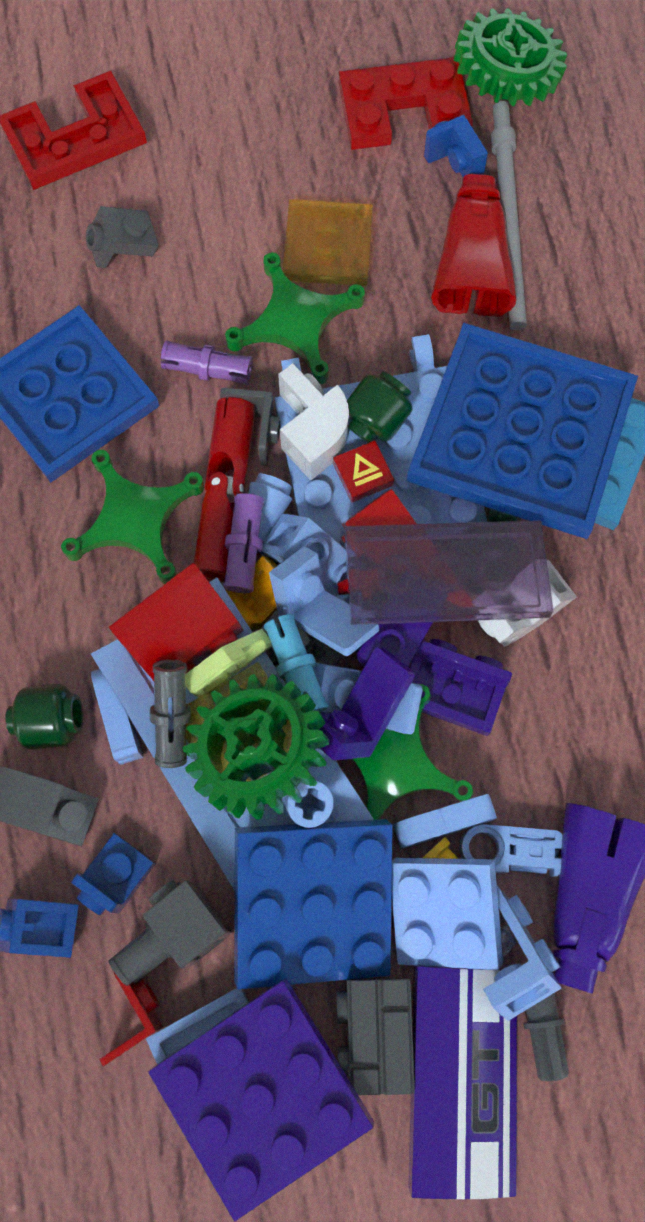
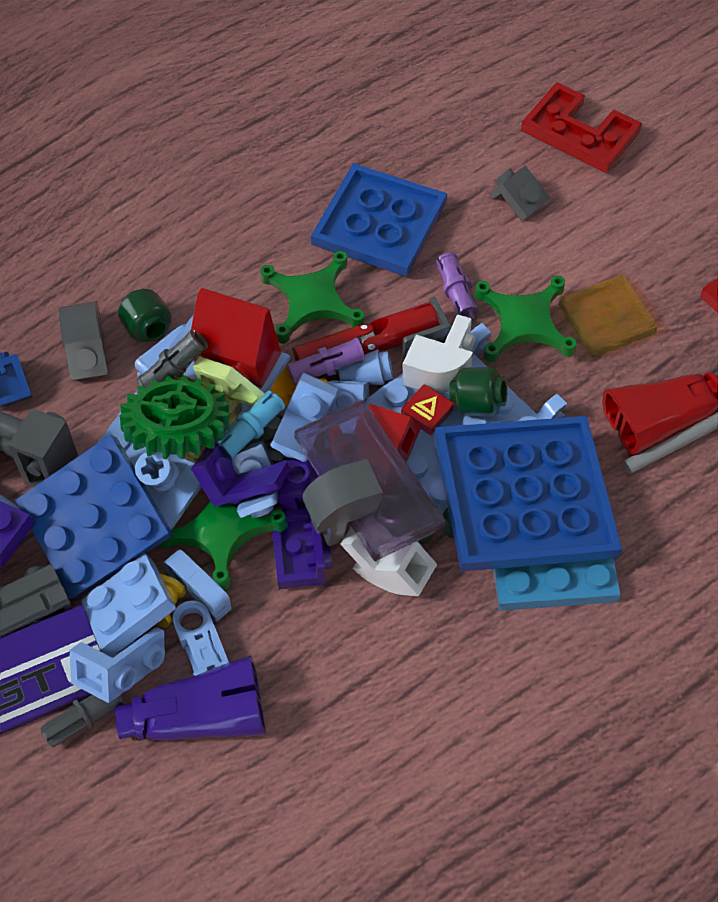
camera: 65 degrees right, 15 degrees down
(112, 876) = (67, 403): blue bracket -> none
(478, 609) = (342, 497): none -> dark grey brick

